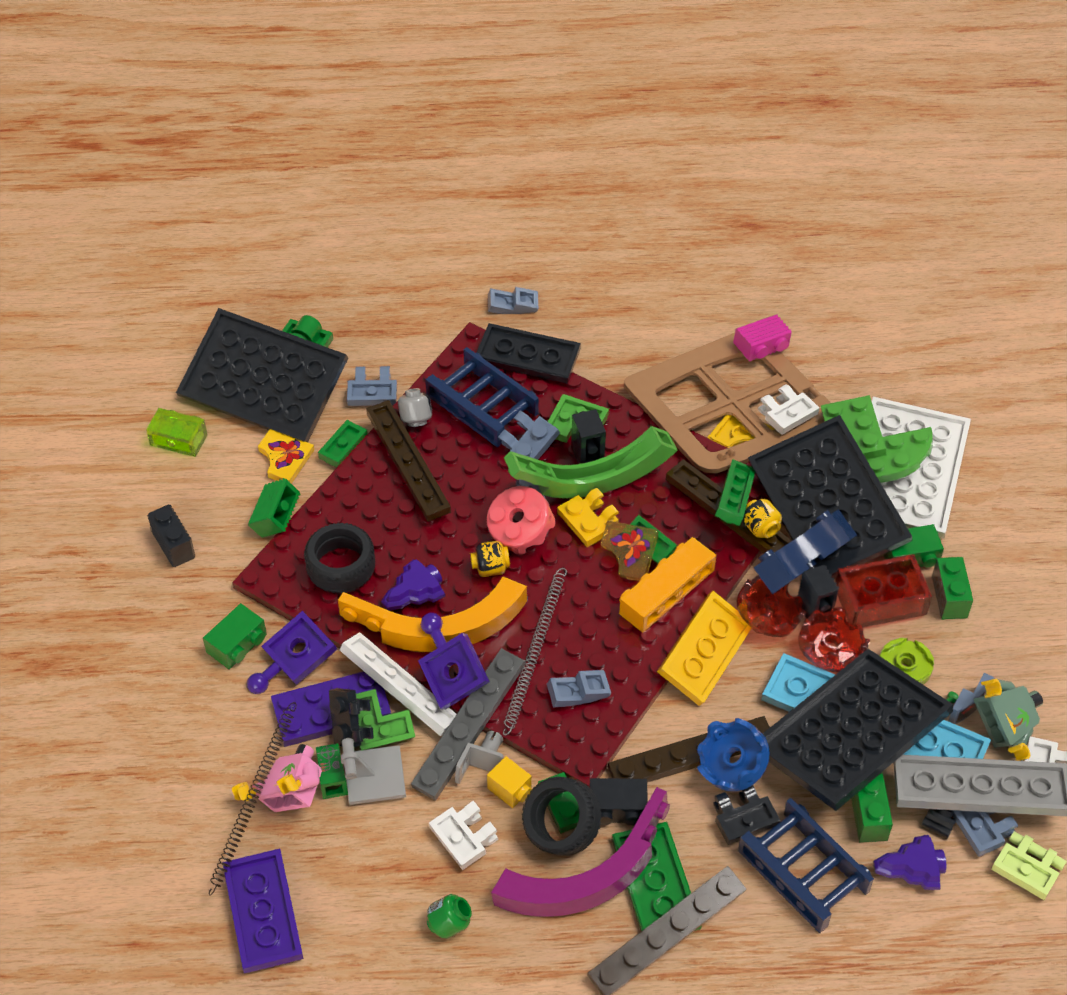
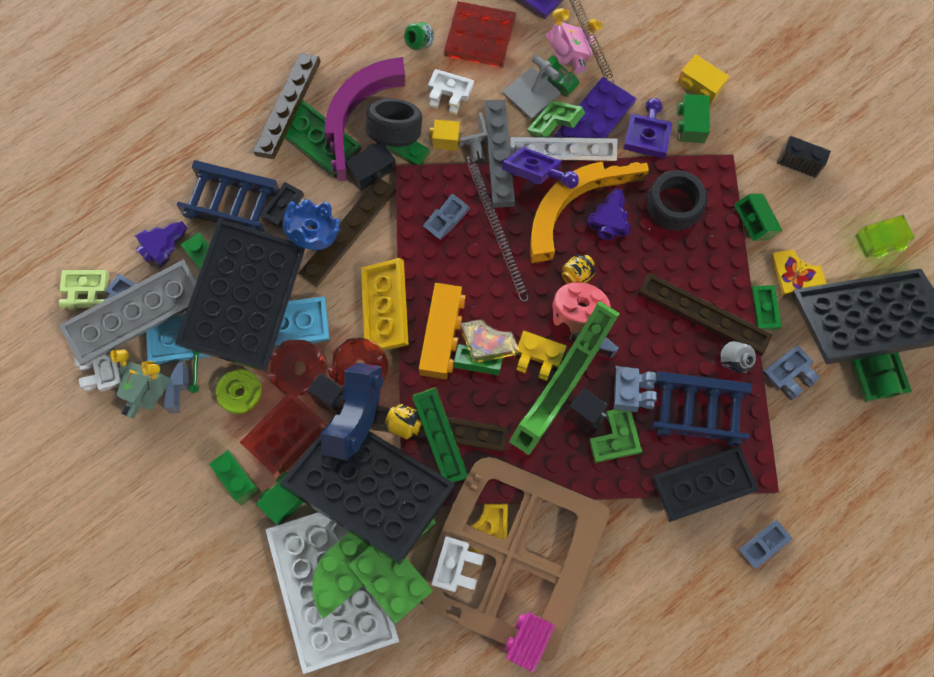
camera: 145 degrees right, 20 degrees up
(184, 668) = (702, 78): none -> yellow brick
(344, 716) = (571, 97): black plate -> none
(370, 885) = (480, 34): none -> clear red plate

